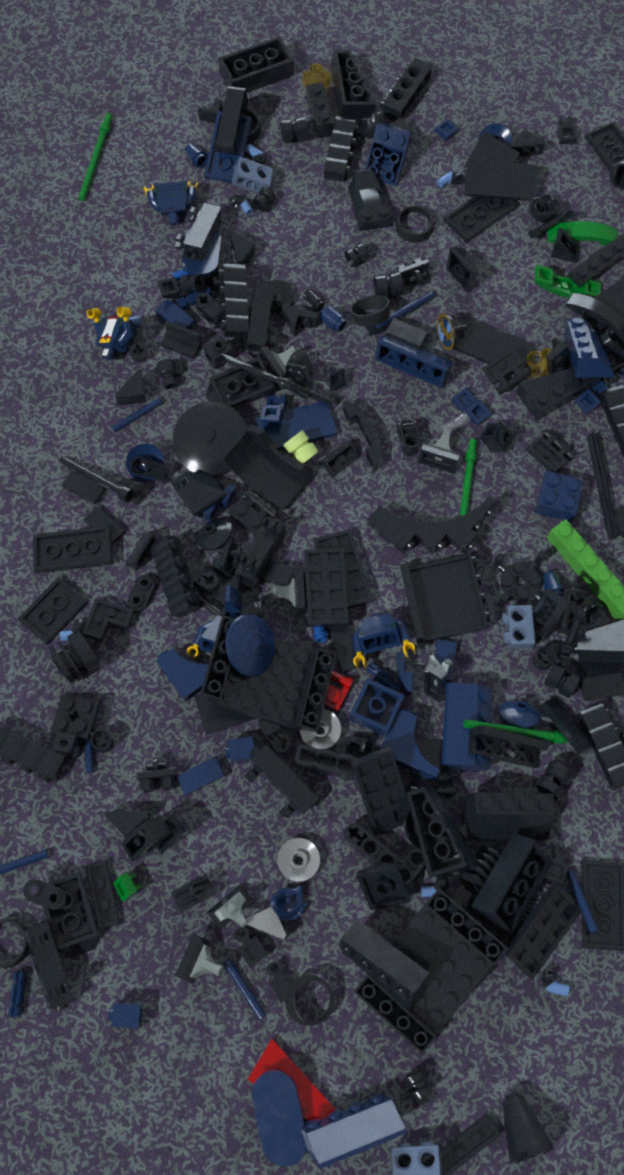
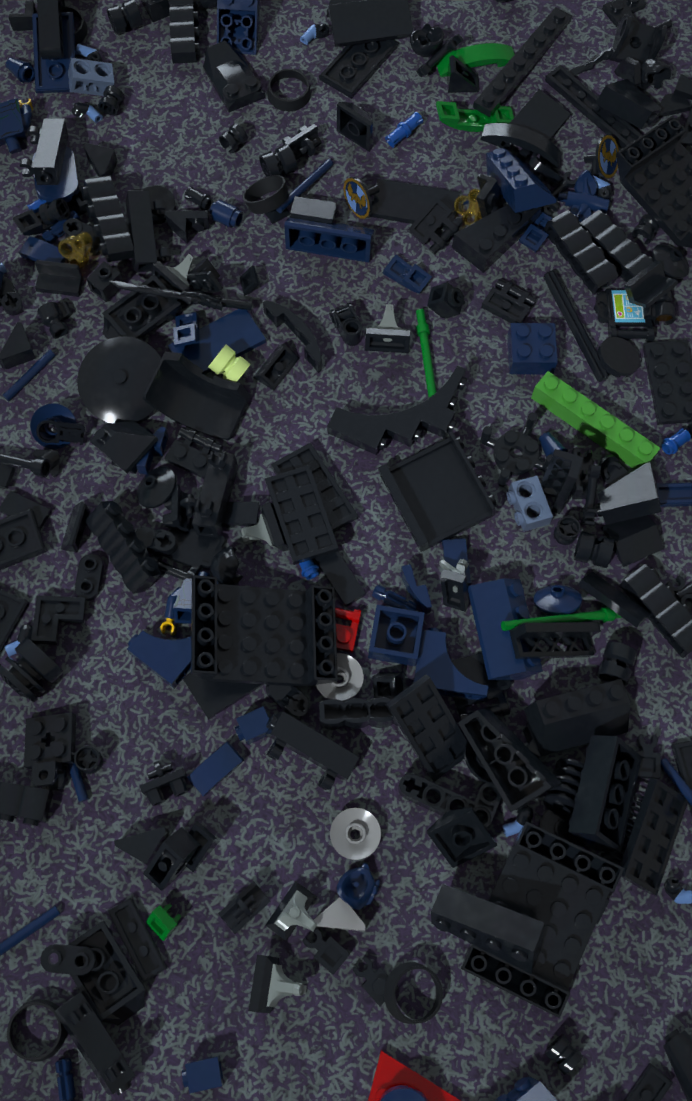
camera: 15 degrees left, 0 degrees up
(206, 319) = (80, 251): none -> clear yellow piece
(233, 600) = (198, 556): dark blue slope -> none
(244, 989) = (333, 1002): dark blue bar -> none
(250, 645) = (233, 601): dark blue hat -> none
(378, 634) = (376, 551): dark blue torso -> none
(455, 423) = (396, 296): clear hinge -> none
(503, 281) = (404, 129): none -> blue pin

